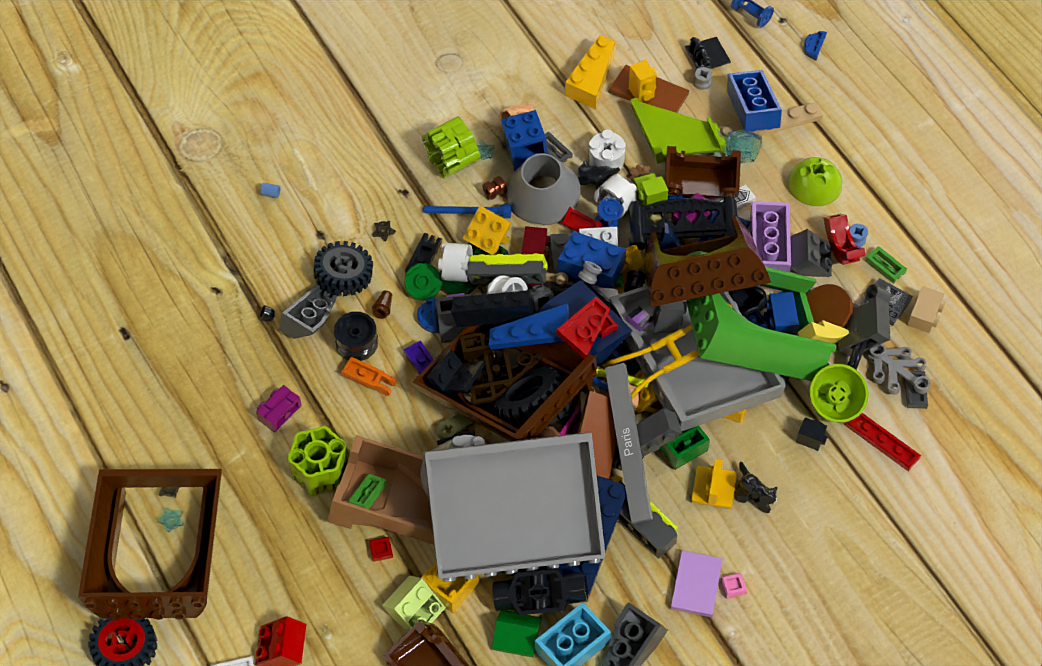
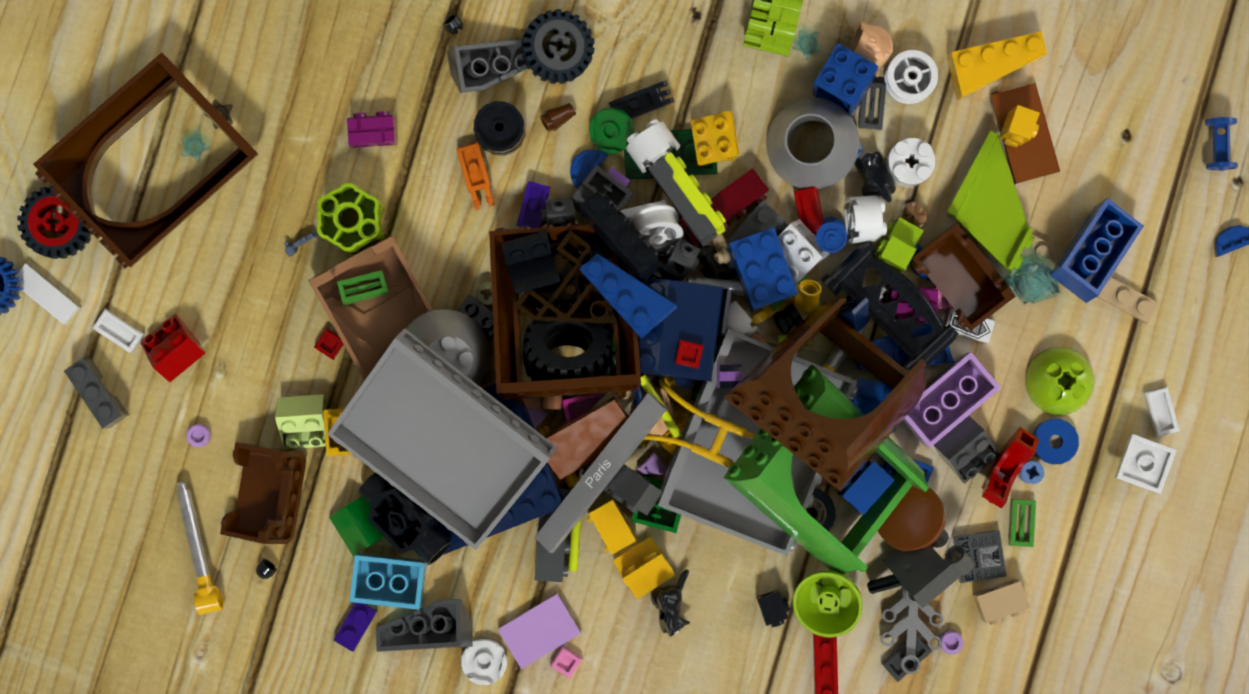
camera: 50 degrees right, 30 degrees up
(297, 520) = (291, 250): none -> sand blue piece
(383, 225) = (636, 31): clear smoke plate -> none
(439, 343) = (558, 212): none -> dark grey brick
(494, 187) = (768, 95): copper wheel -> none
(504, 210) = (757, 127): blue piece -> none
(558, 114) = (901, 86): none -> white wheel
(584, 327) = (661, 345): red wing -> none
(590, 272) = (737, 288): light grey wheel -> none
(668, 475) = (611, 526): none -> yellow container
(685, 635) = (484, 661): none -> white tile
(703, 78) = (1083, 174): light grey wheel -> none
(707, 53) = (1123, 148): black hinge -> none
(823, 332) = (870, 545): light yellow slope -> none
(854, 203) = (1068, 446): none -> blue tile
(883, 148) = (1161, 411): none -> white tile
(908, 170) = (1145, 463): none -> white tile
(930, 356) = (951, 642): none -> lavender tile

